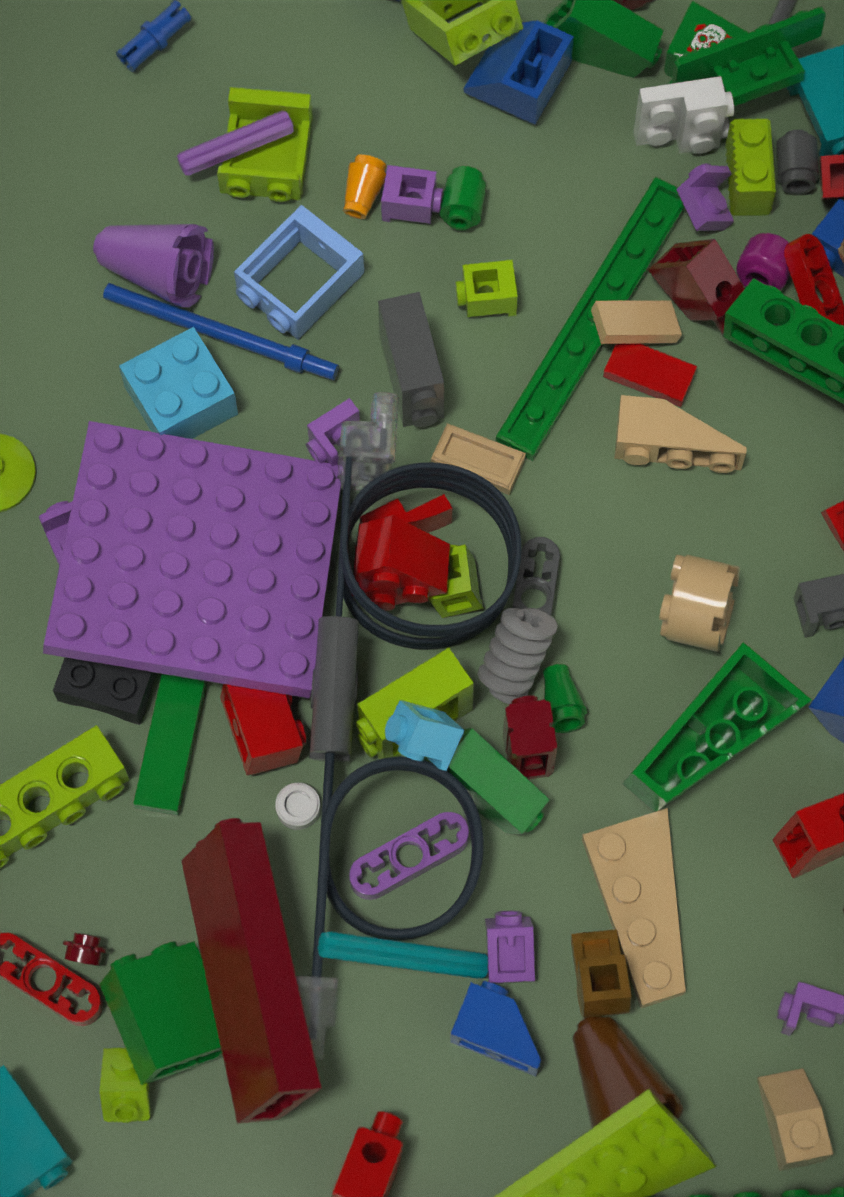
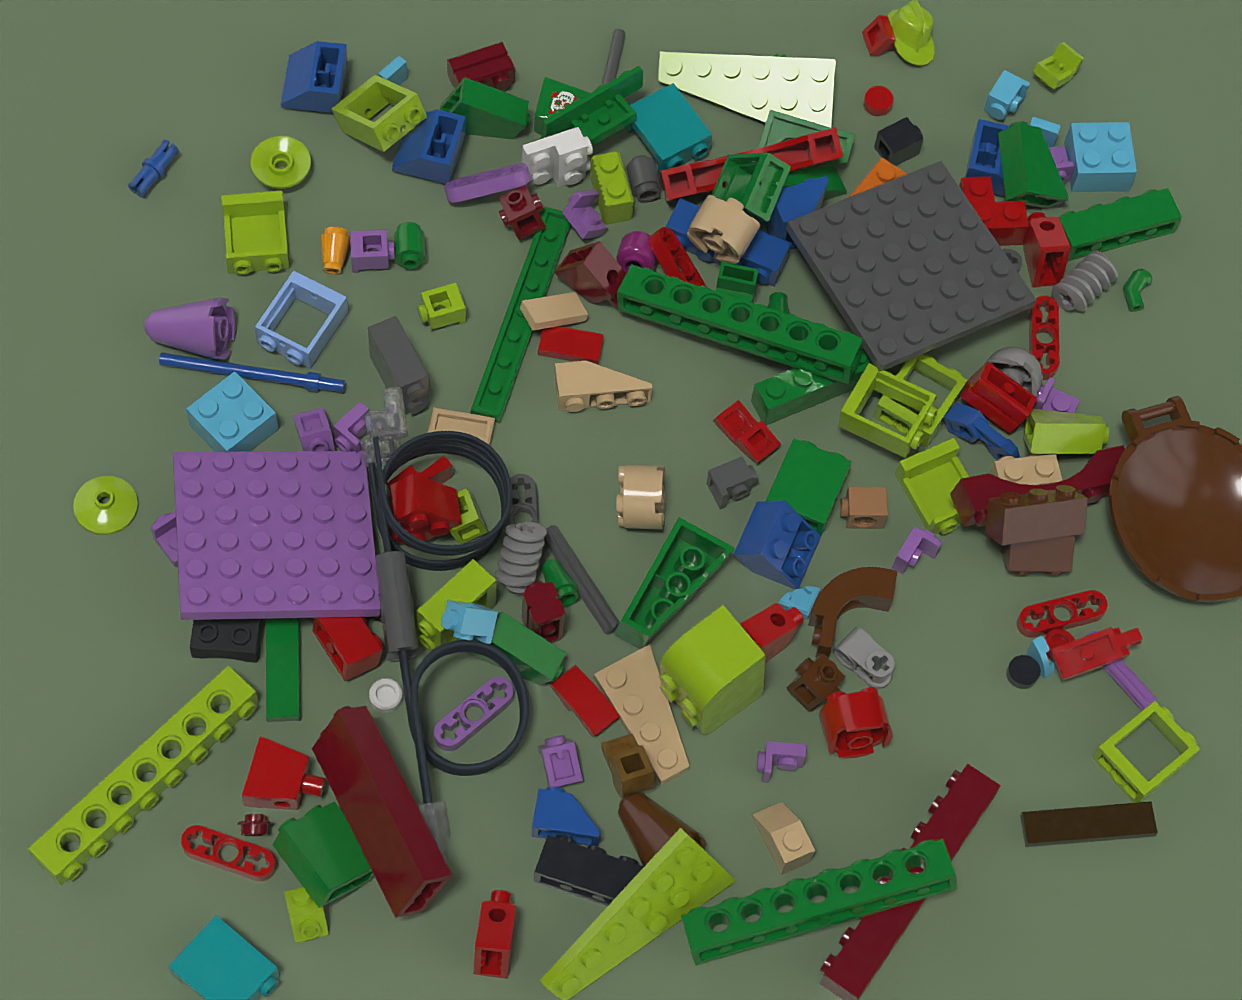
camera: 20 degrees left, 5 degrees down
(131, 891) = (279, 778): none -> red torso
(235, 143) = (233, 235): medium lavender axle -> none
(282, 426) = (314, 431): none -> medium lavender bracket
(319, 42) = (280, 152): none -> lime dish
(402, 955) = (486, 779): teal axle -> none
(511, 1109) = (584, 870): none -> black brick
(561, 869) = (585, 700): none -> red slope
(584, 131) = (487, 182): none -> medium lavender beam
(591, 691) = (587, 588): none -> dark grey axle
(621, 171) = (522, 212): none -> dark red brick
(742, 873) = (713, 671): none -> lime brick

